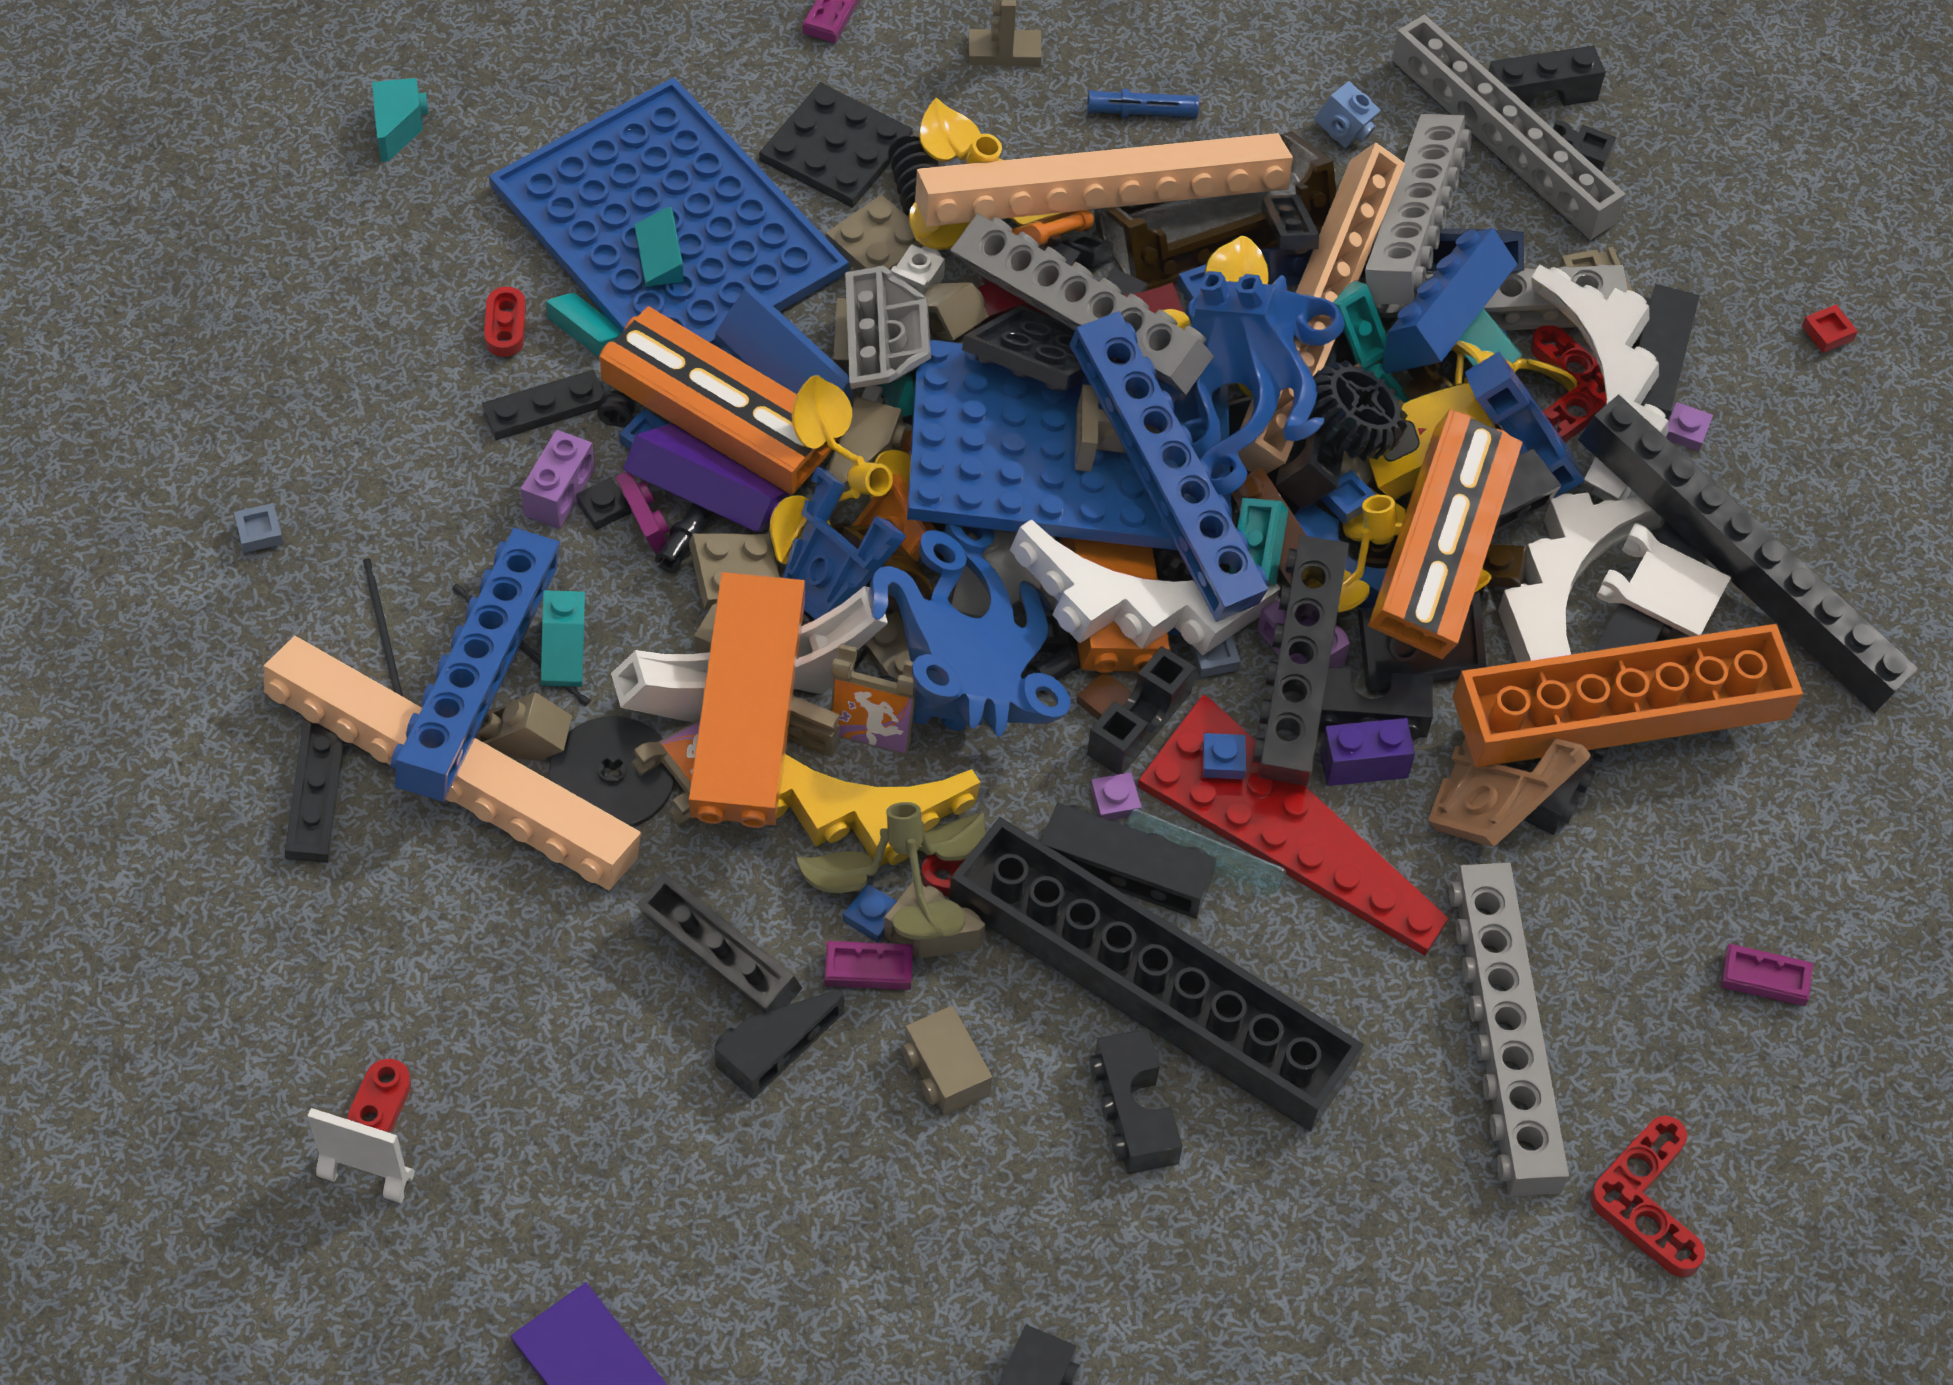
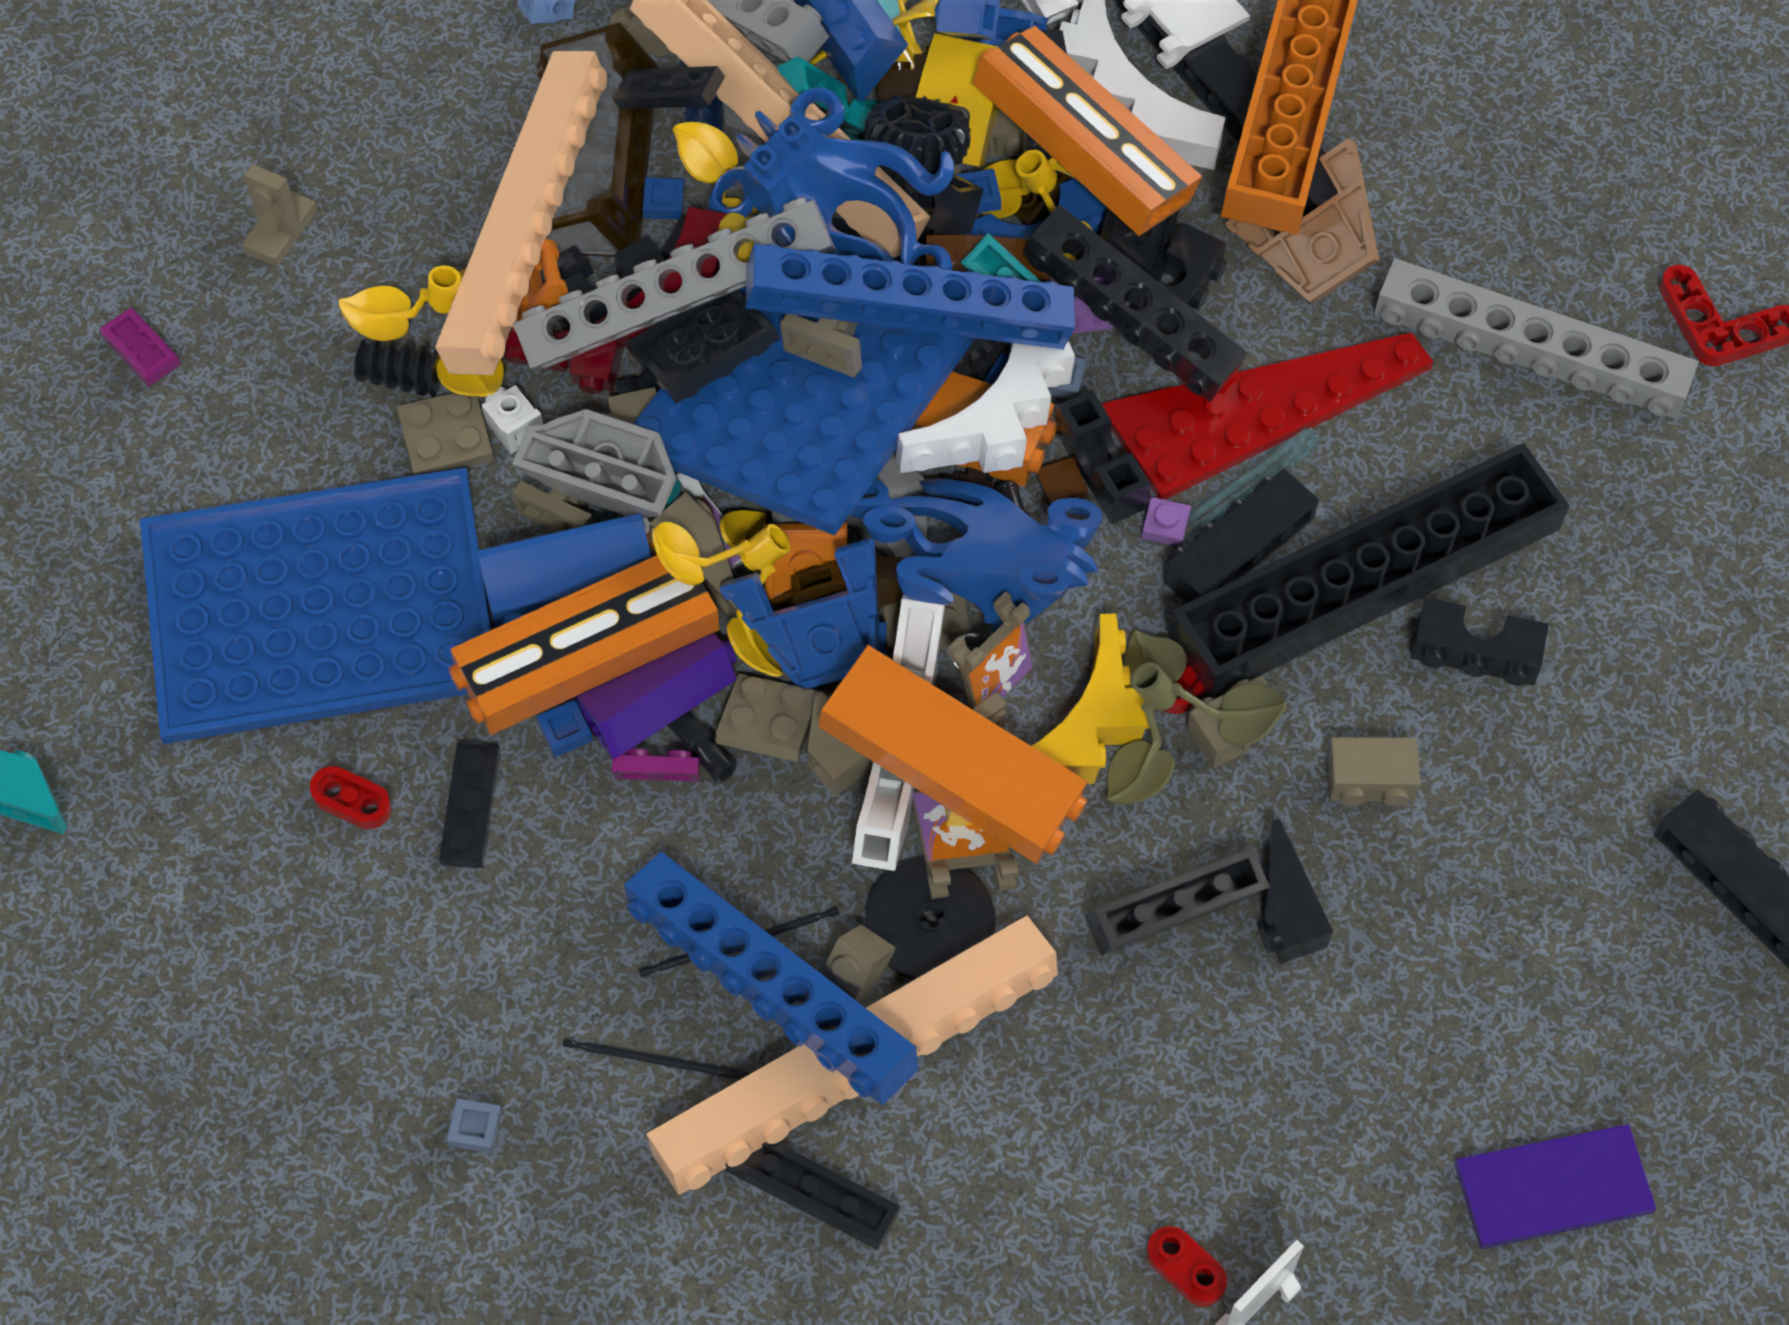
camera: 60 degrees left, 5 degrees up
(557, 478) = (577, 825): medium lavender brick -> none
(562, 638) = (767, 896): teal slope -> none
(581, 321) = (393, 728): teal slope -> none
(603, 503) = (618, 801): black plate -> none
(616, 409) = (518, 741): black bush -> none
(659, 249) = (357, 617): teal slope -> none
(834, 144) = (307, 419): black plate -> none
(868, 912) = (1192, 766): blue plate -> none
(868, 965) = (1244, 791): magenta plate -> none
(954, 309) = (589, 390): dark tan slope -> none
(1184, 104) = (401, 176): blue pin -> none
(1223, 756) = (1180, 416): blue plate -> none
(1367, 752) = (1231, 299): dark purple brick -> none
(1766, 975) = (1568, 140): magenta plate -> none

